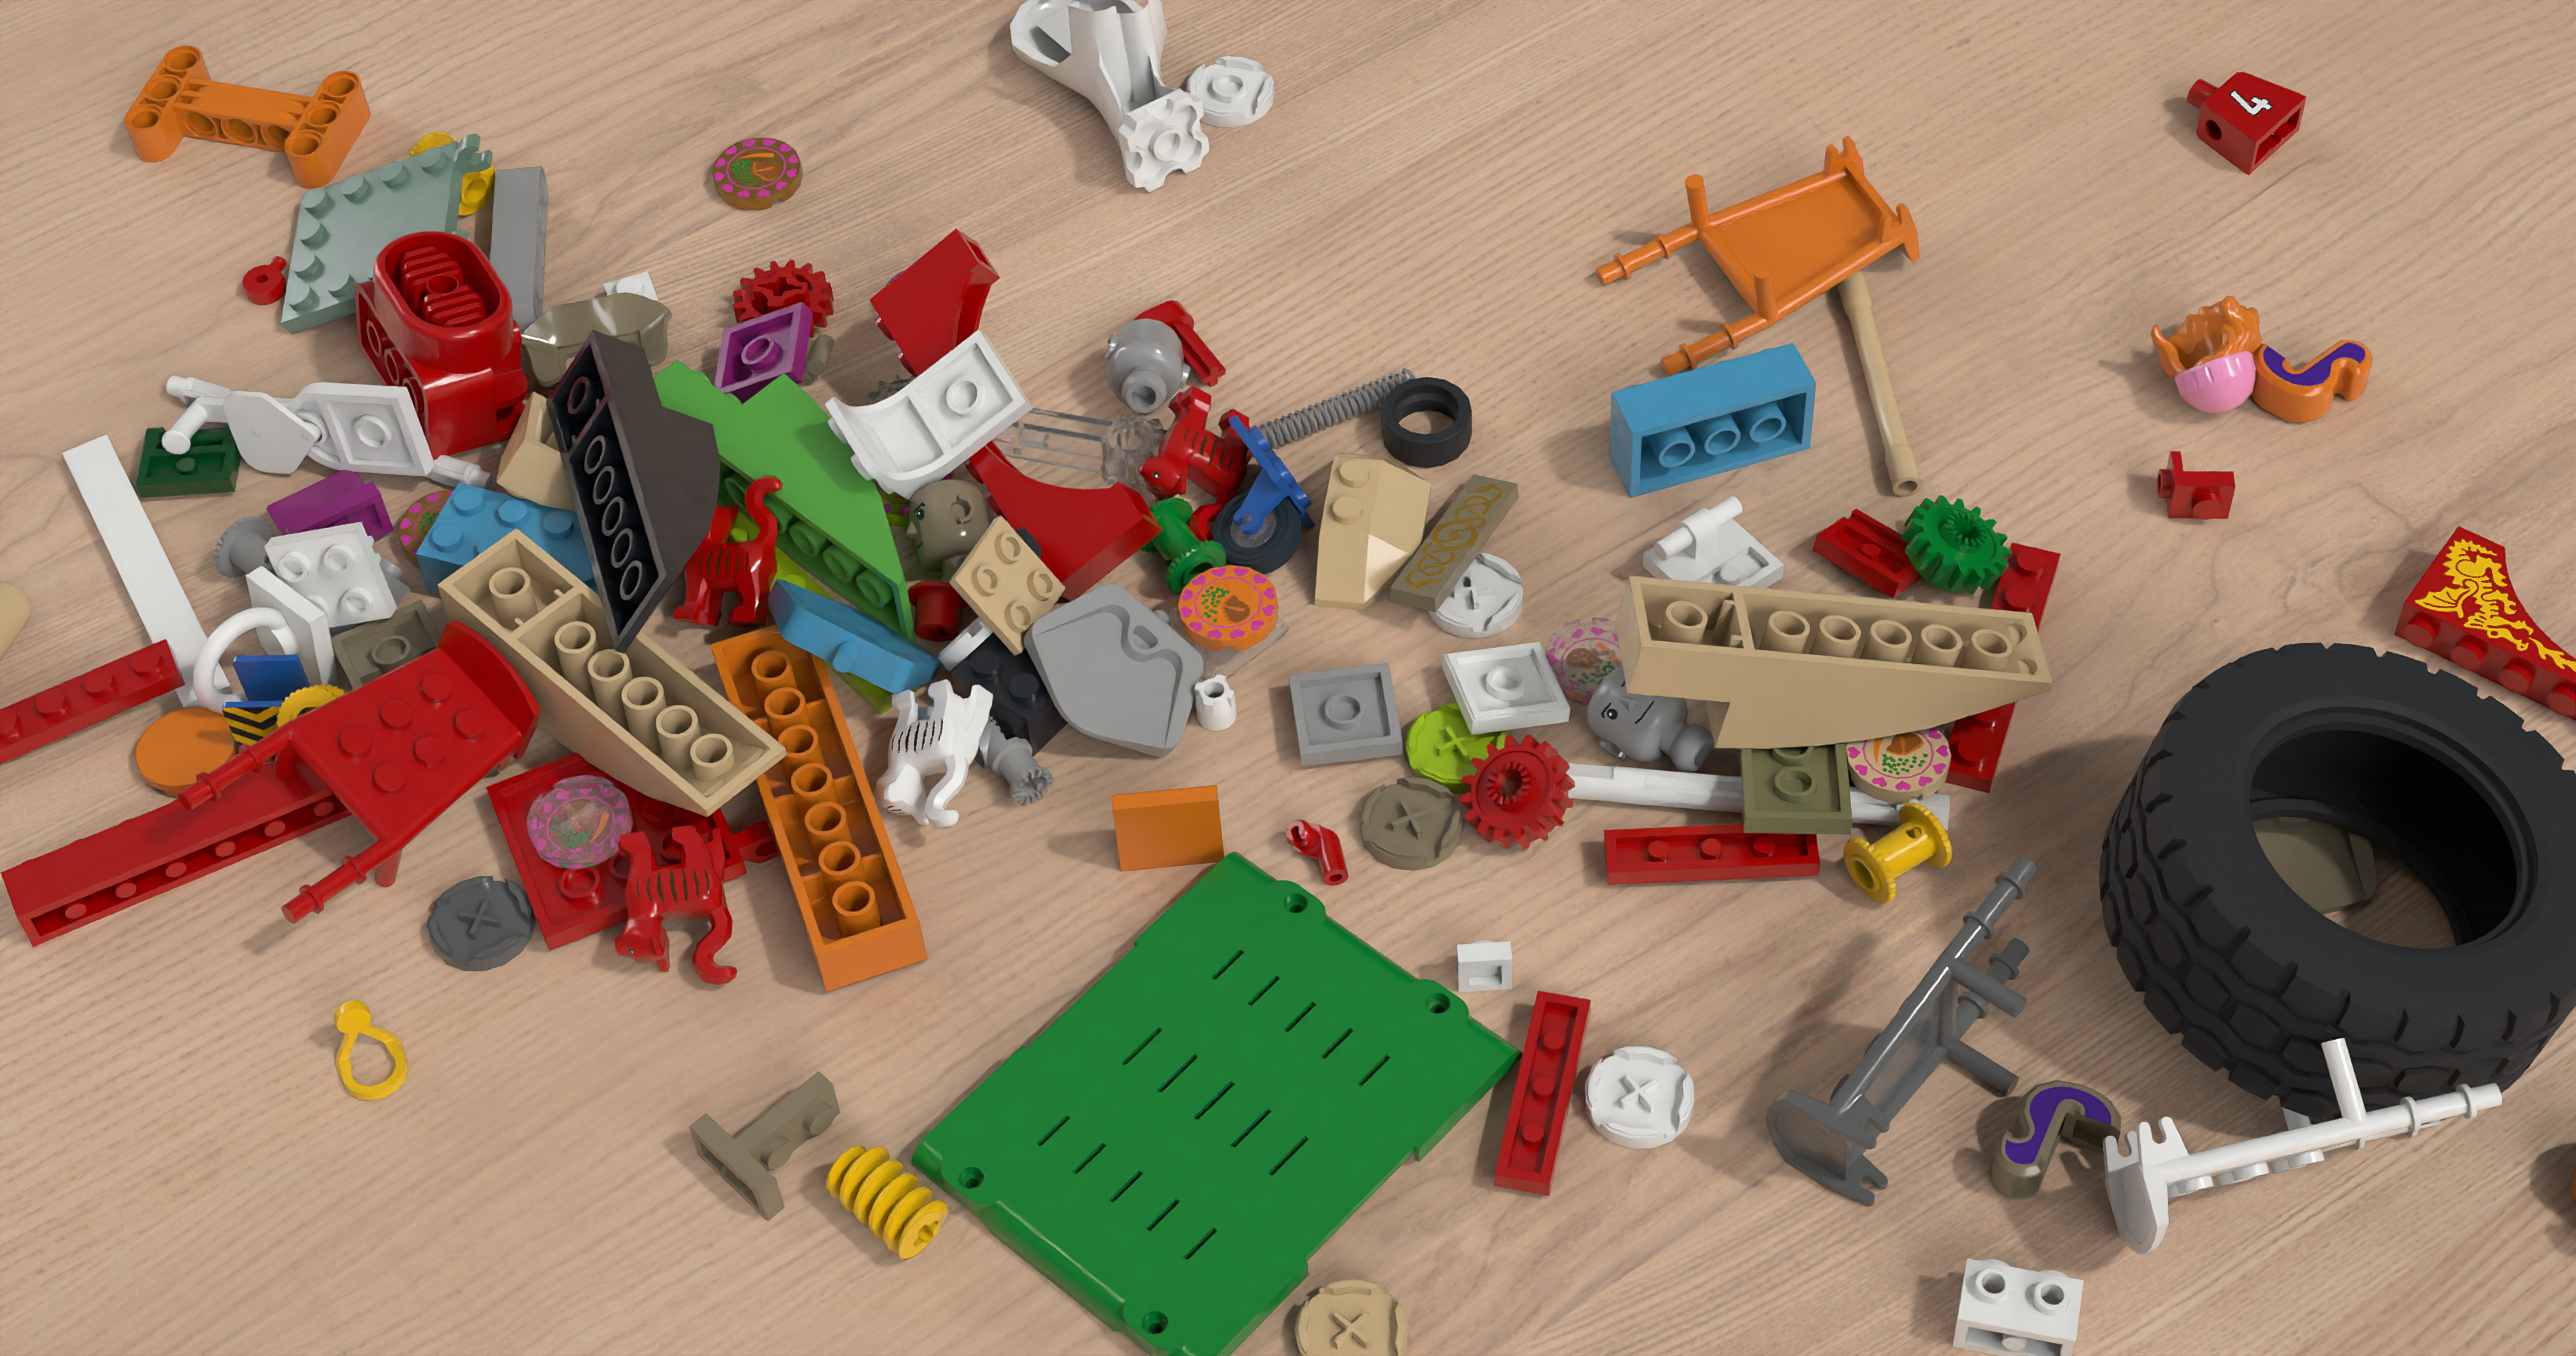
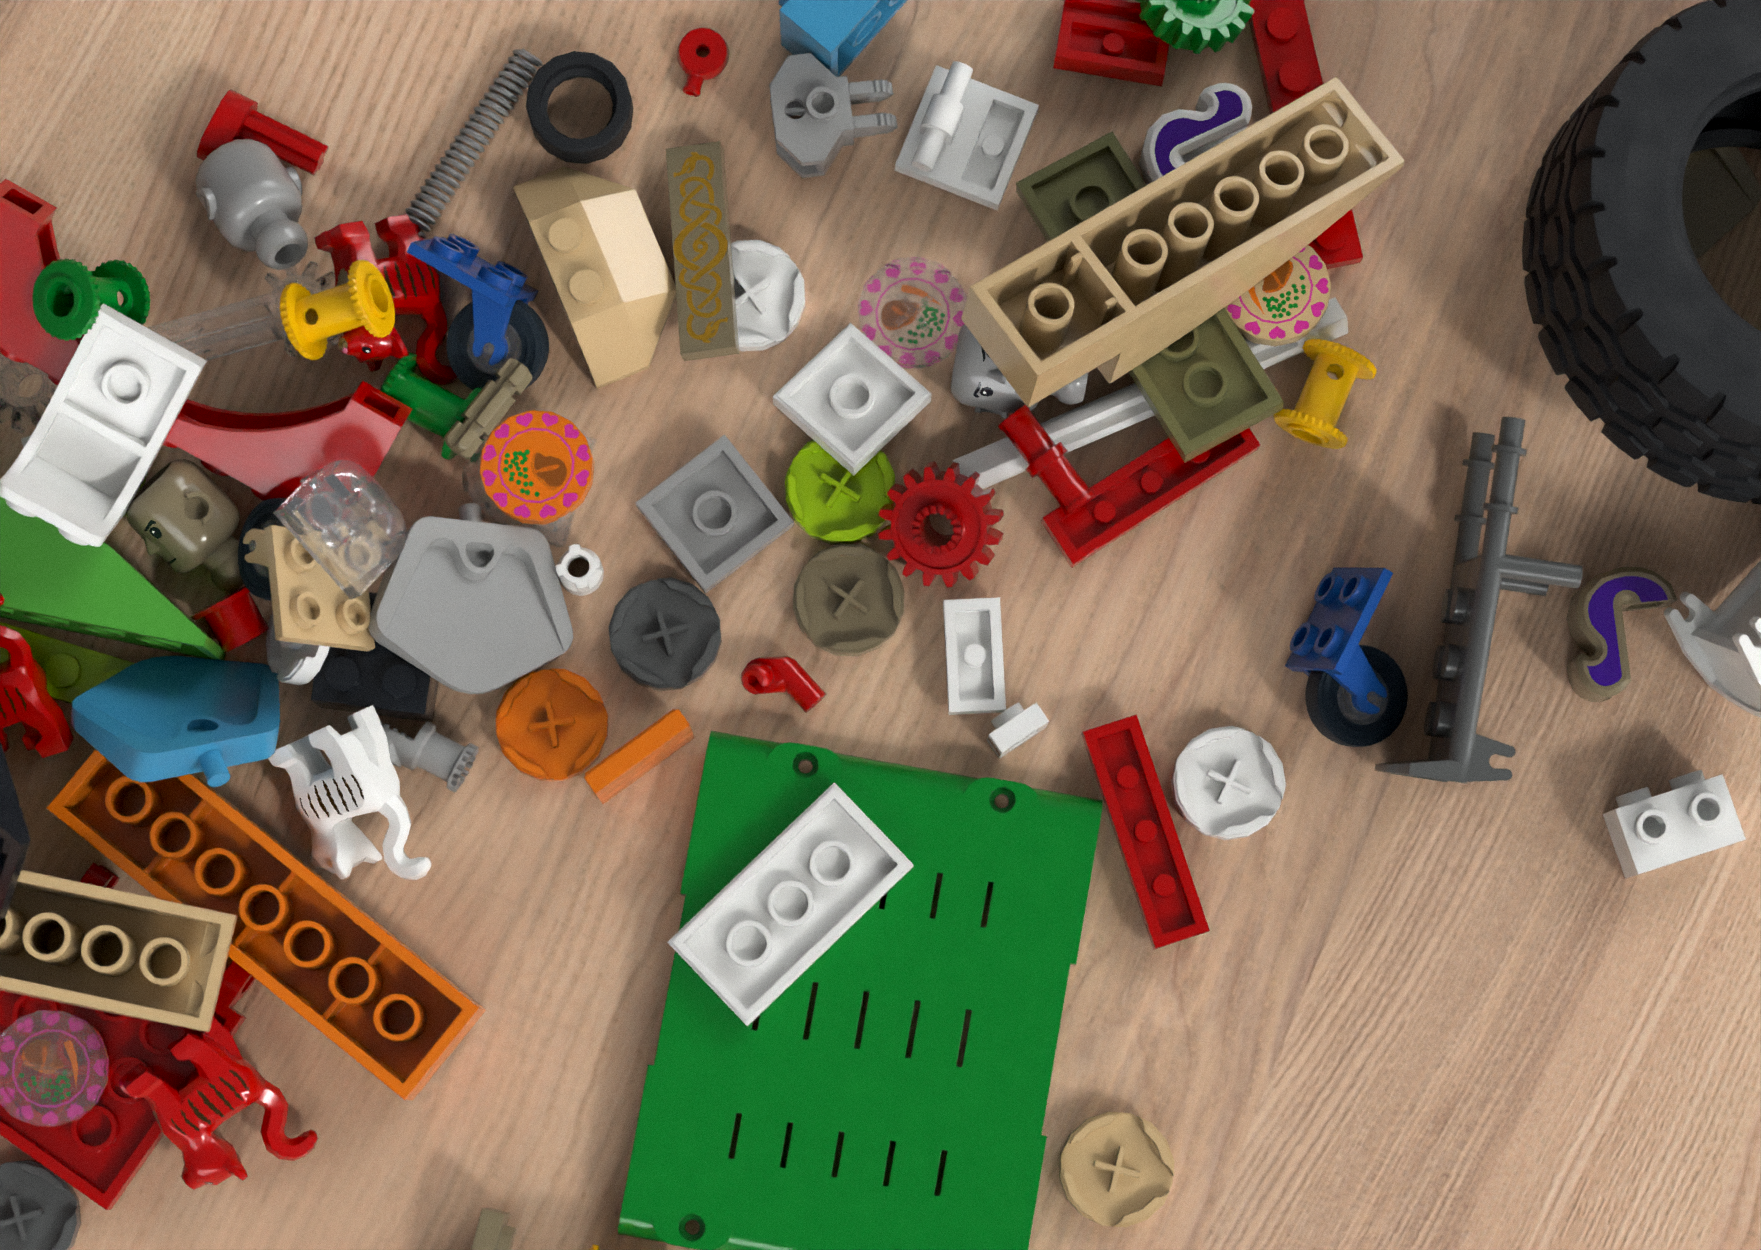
camera: 40 degrees left, 30 degrees up
(969, 314) = (70, 296): none -> green hose
(1055, 548) = (345, 524): none -> clear slope
(1106, 776) = (552, 724): none -> orange tile
(1131, 435) = (358, 303): none -> yellow hose
(1214, 987) = (790, 904): none -> white tile
(1219, 552) = (488, 408): none -> dark tan axle
(1253, 778) = (665, 634): none -> dark grey tile
(1485, 899) = (974, 656): none -> white plate
(1541, 435) = (698, 67): none -> red piece
(1608, 496) = (826, 120): none -> light grey hinge
(1631, 784) = (1046, 460): none -> red pin
(1785, 1052) = (1351, 688): none -> plate

